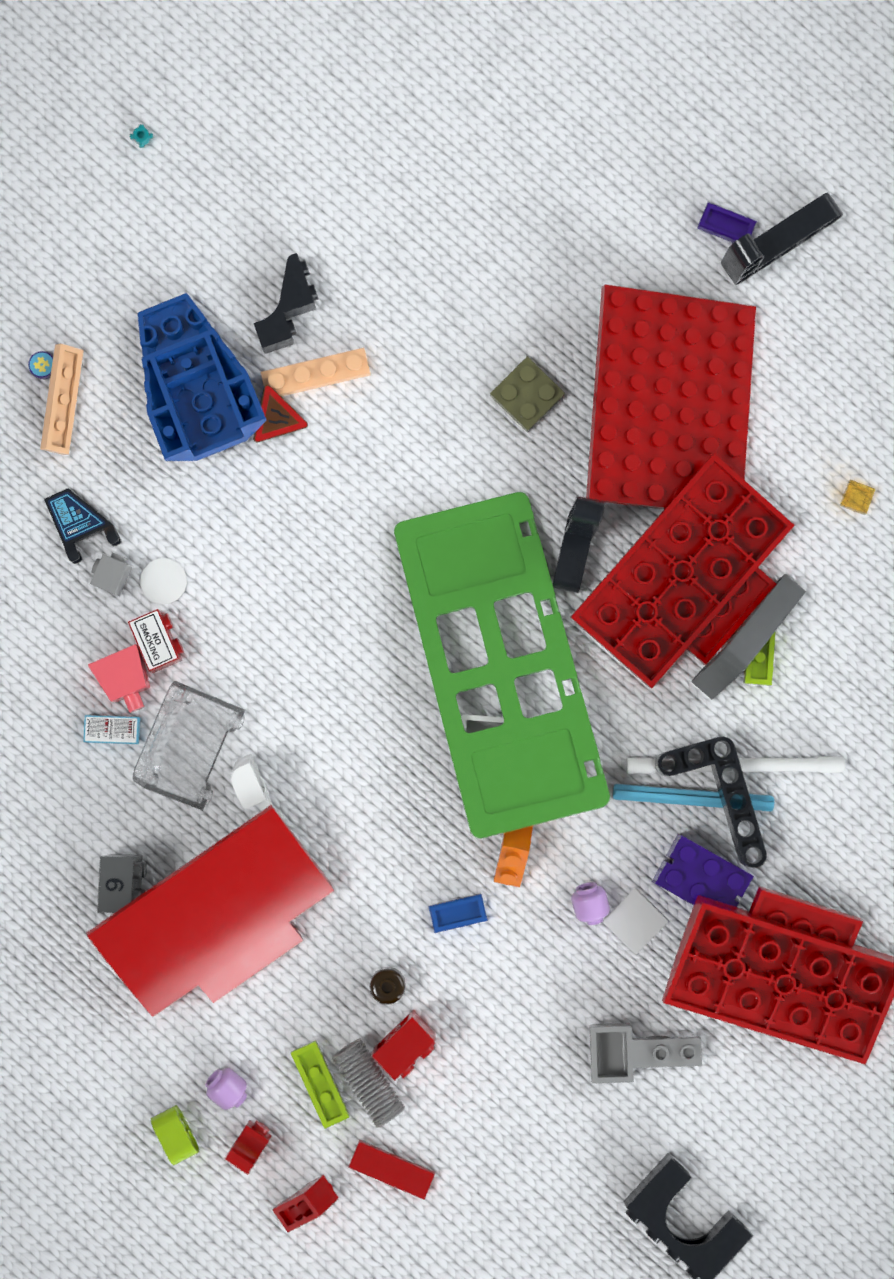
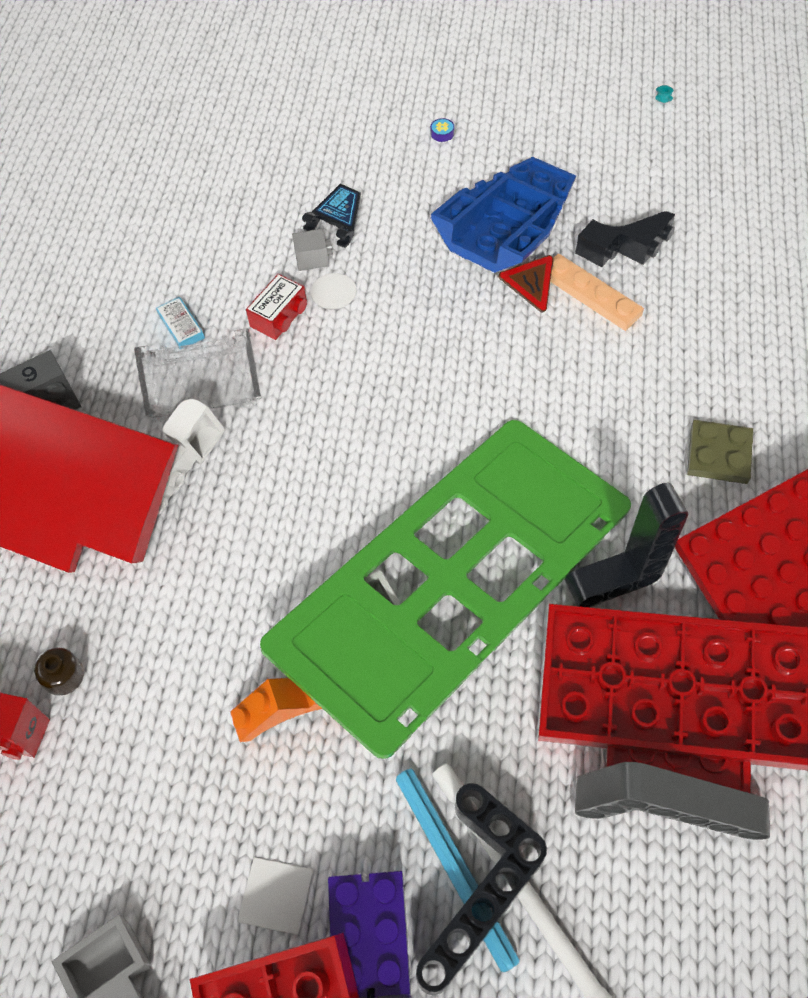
camera: 60 degrees right, 25 degrees down
(61, 399) = (425, 149): light nougat plate -> none
(123, 676) = (227, 301): coral torso -> none
(457, 913) = (176, 699): blue tile -> none
(590, 903) = (264, 825): lavender head -> none
(761, 667) = (655, 839): lime plate -> none

